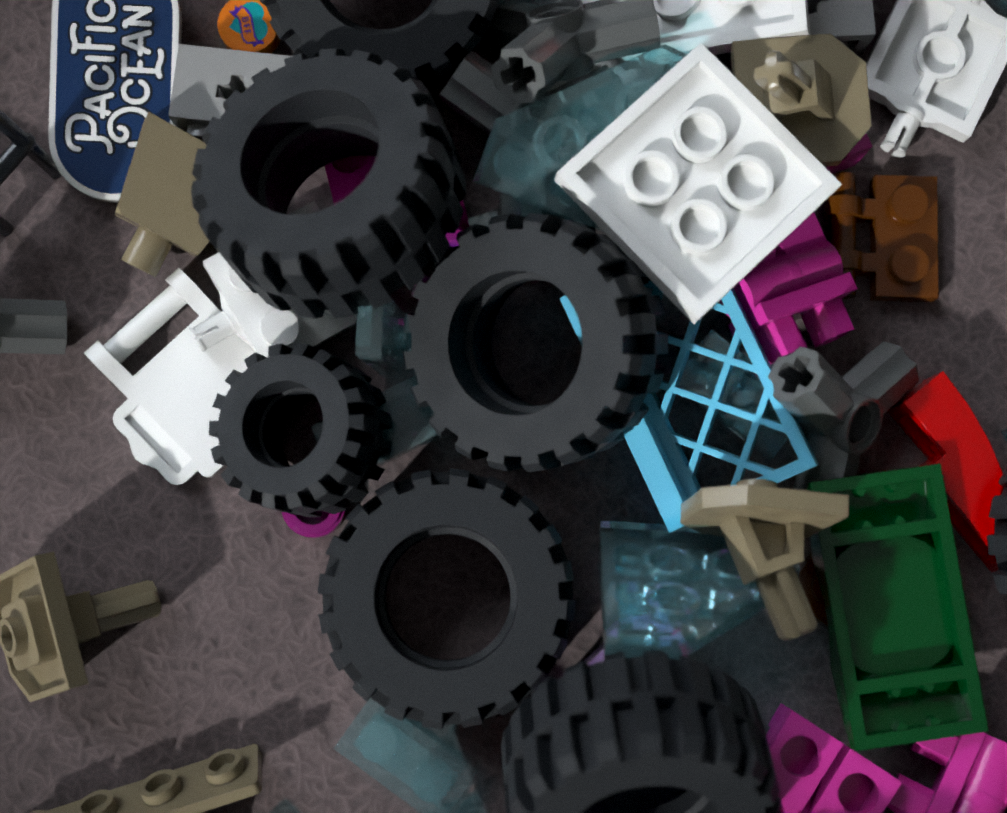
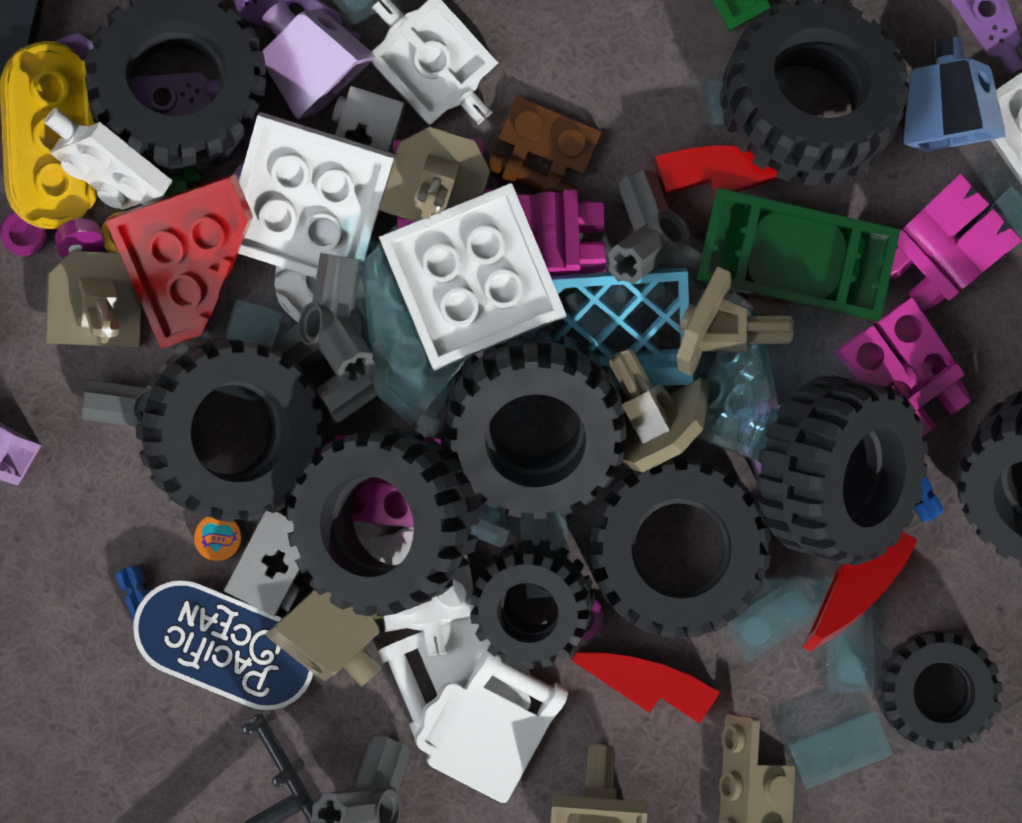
camera: 70 degrees left, 5 degrees up
(114, 439) = (484, 735): none -> white piece
(261, 622) = (648, 681): none -> red slope
(604, 502) = (656, 422): none -> dark tan piece

